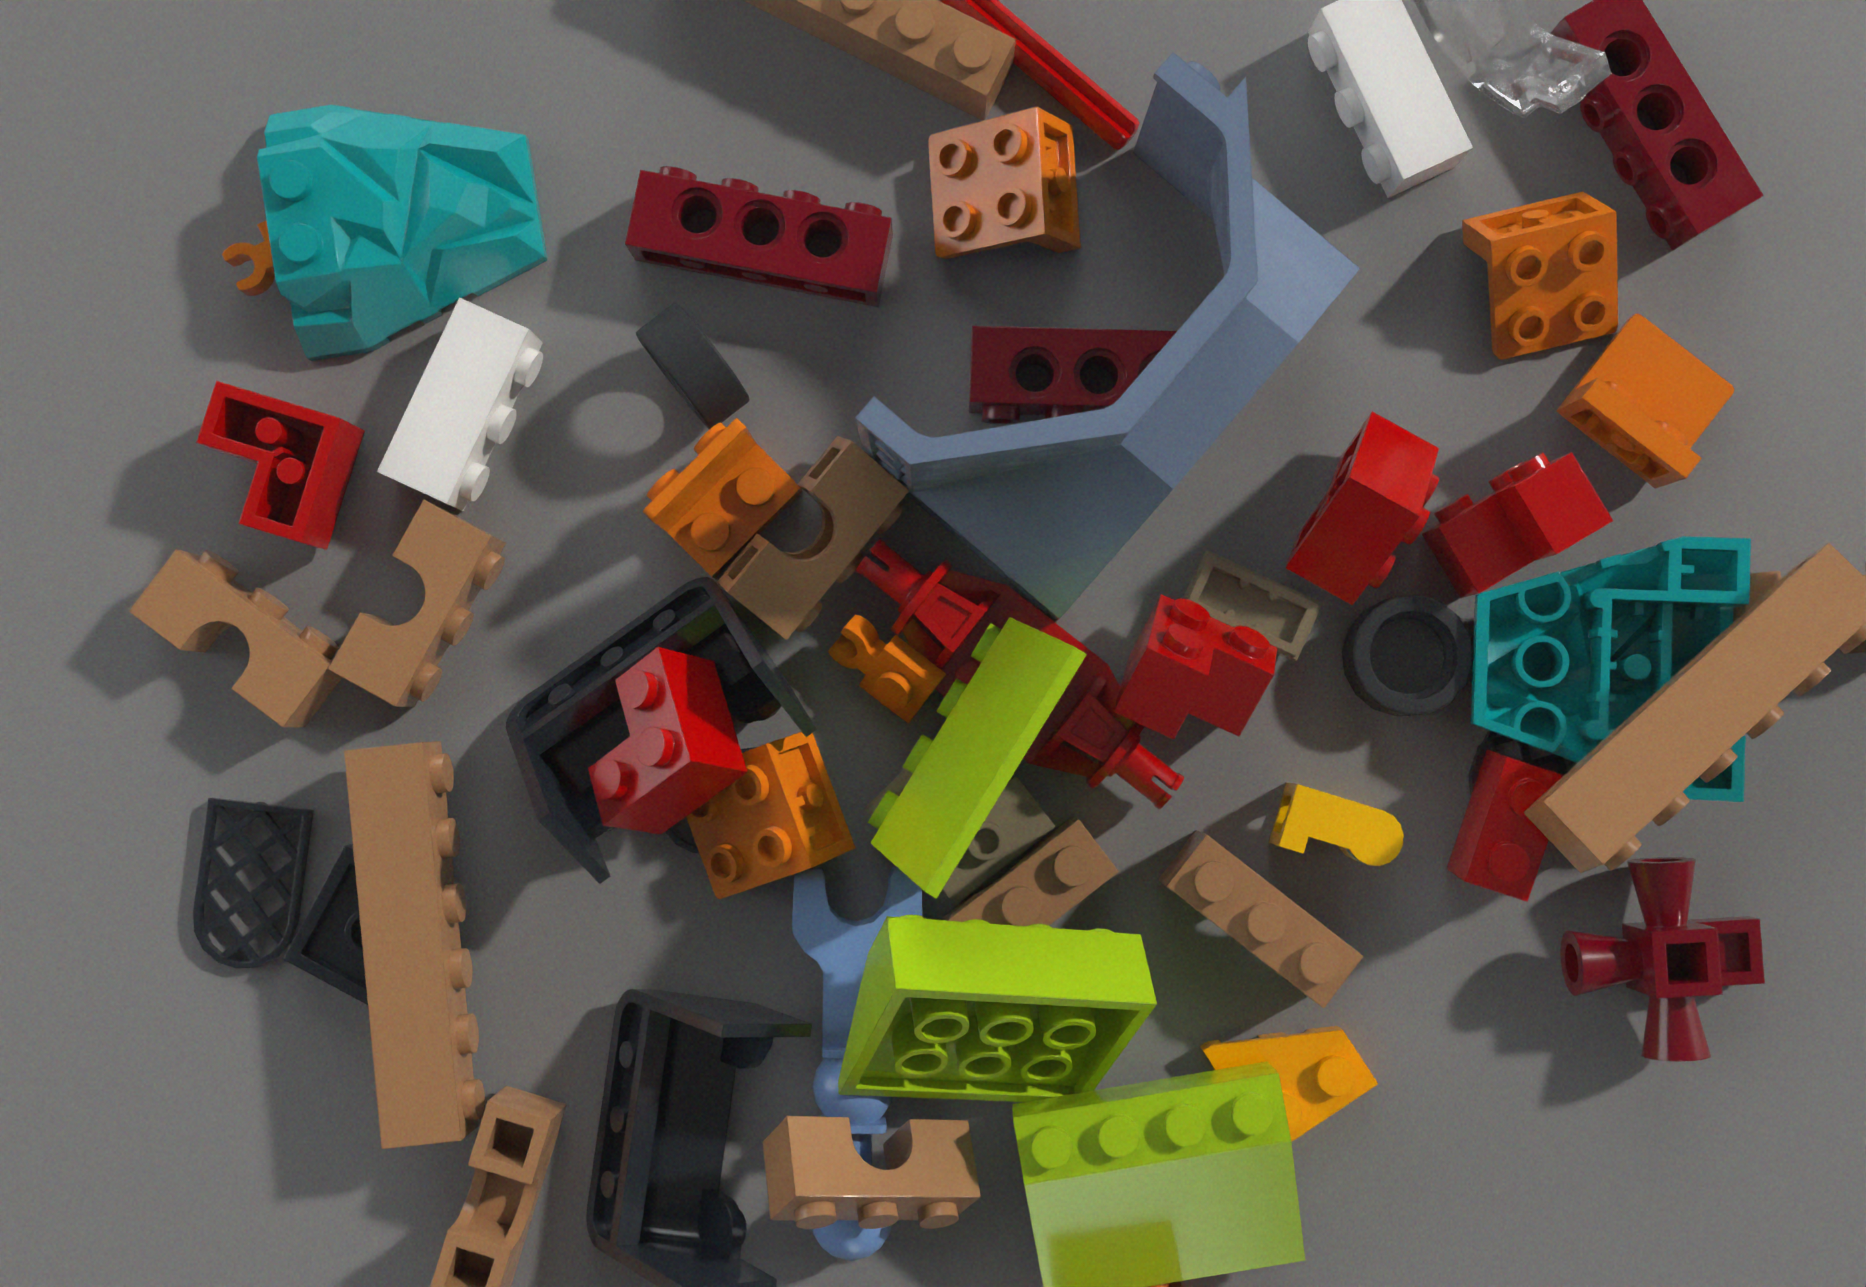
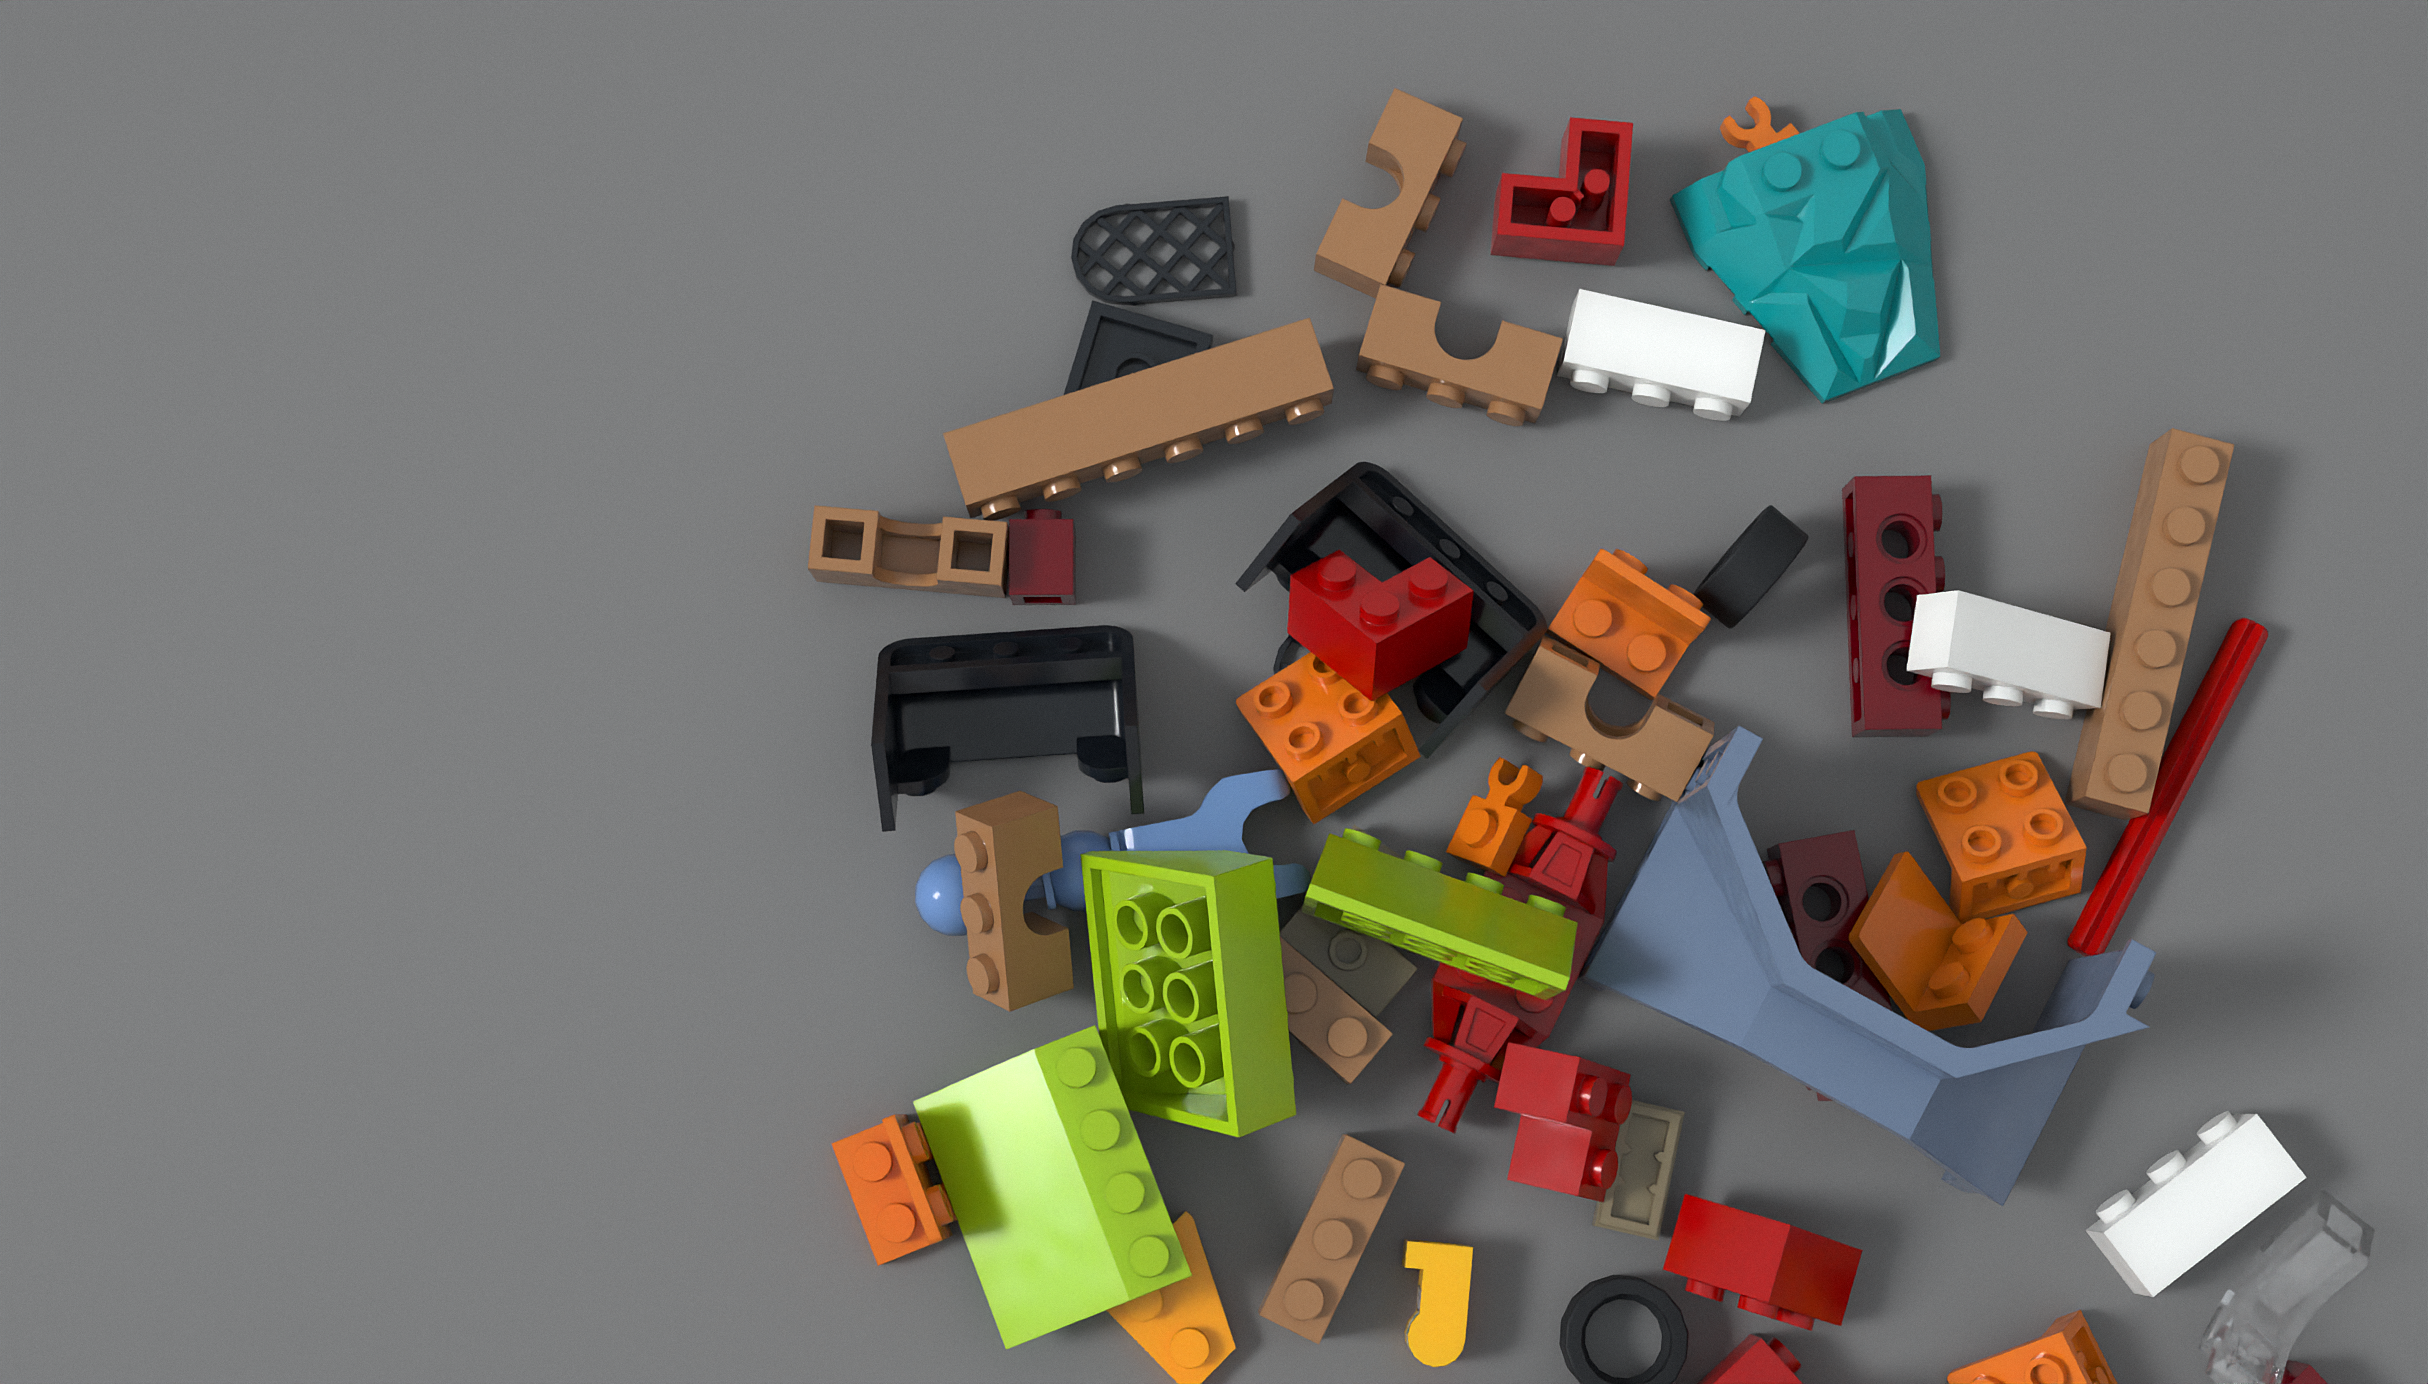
camera: 75 degrees right, 5 degrees down
(535, 1063) = (1042, 559): none -> dark red brick
(831, 137) = (2008, 653): none -> white brick
(1111, 283) = (1923, 954): none -> orange bracket

